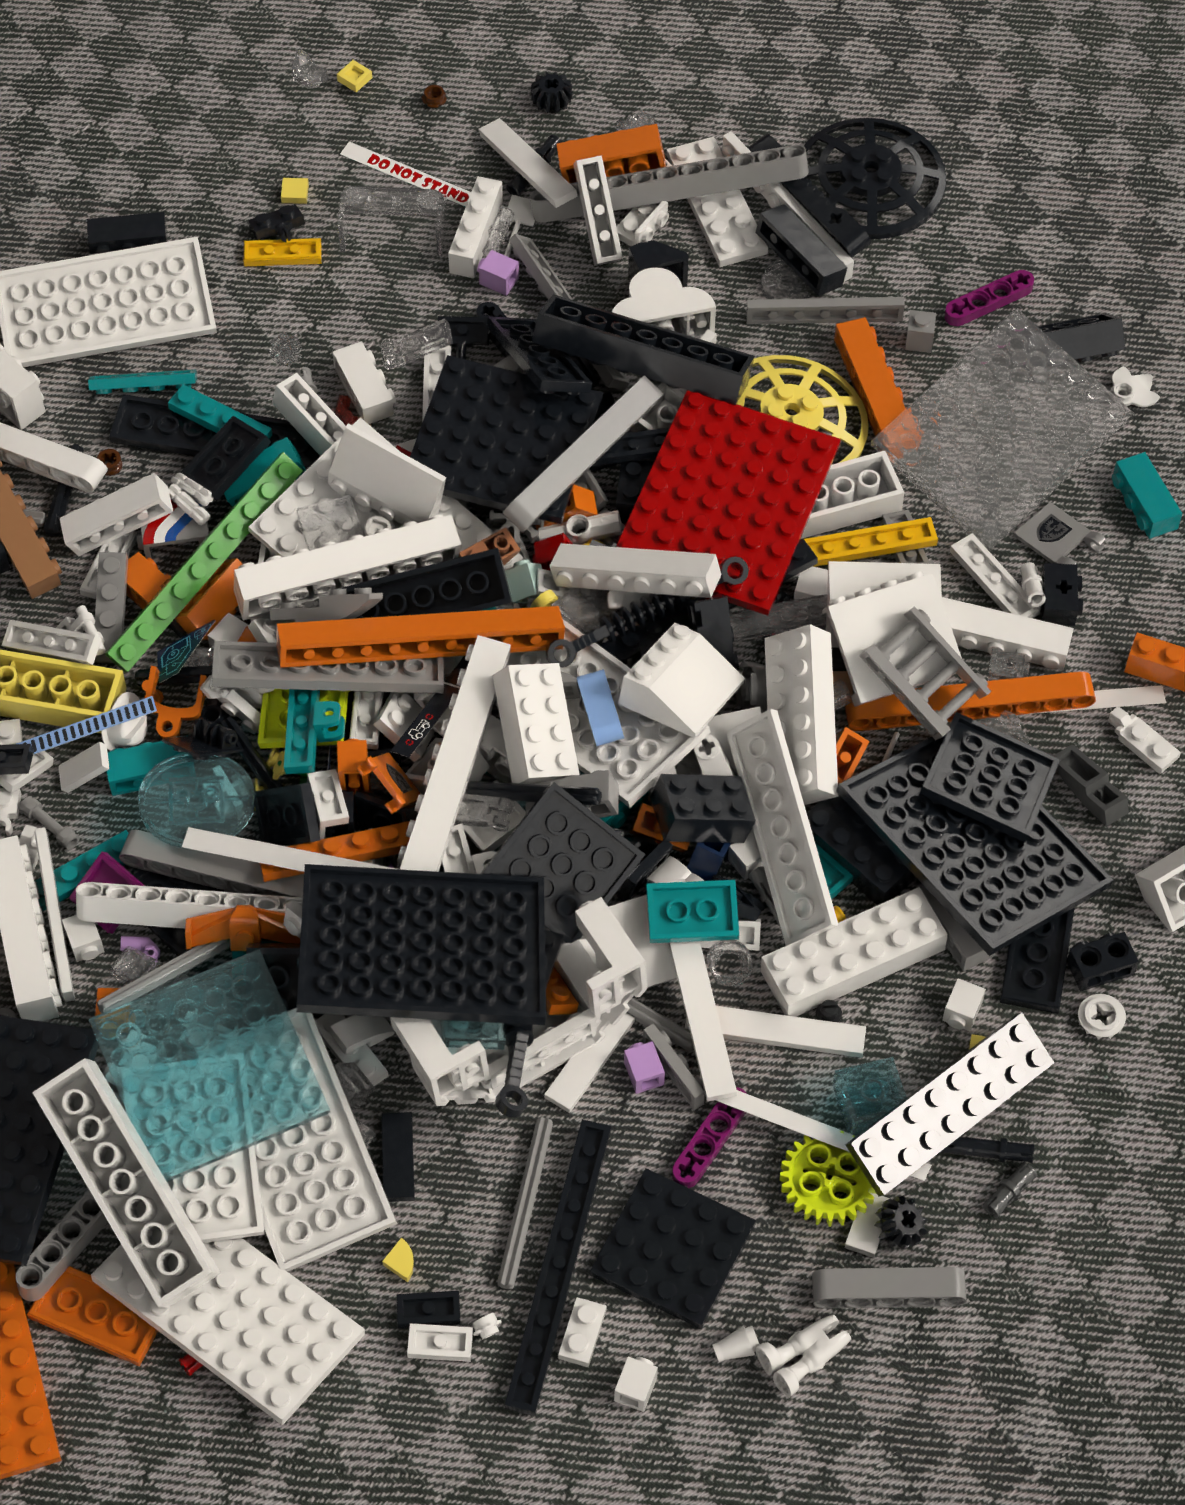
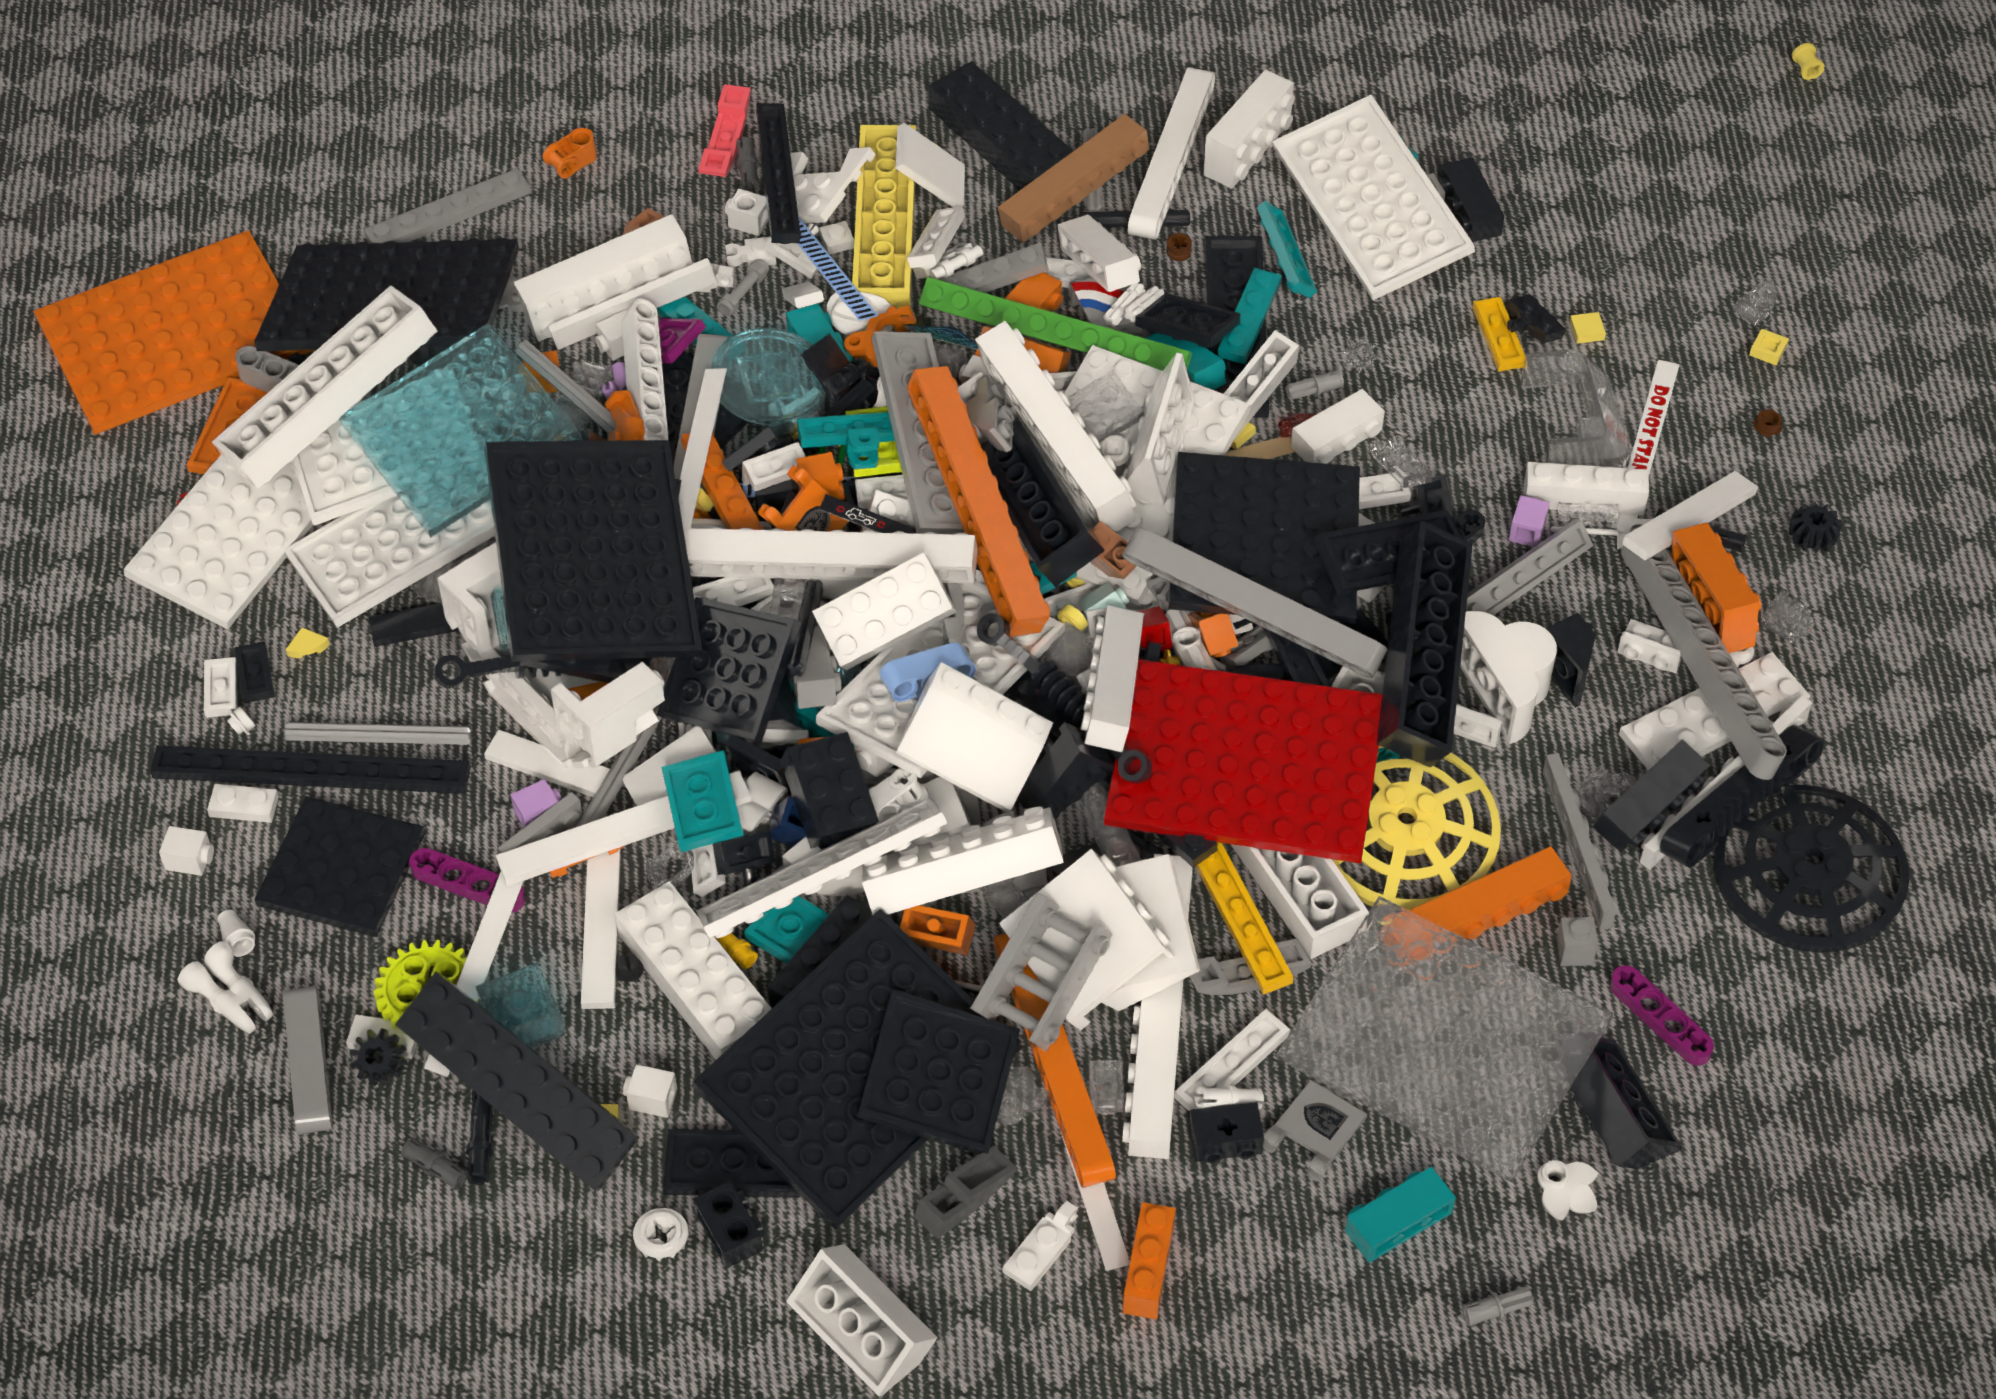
camera: 80 degrees right, 5 degrees down
(598, 210) = (1628, 579): white brick -> none

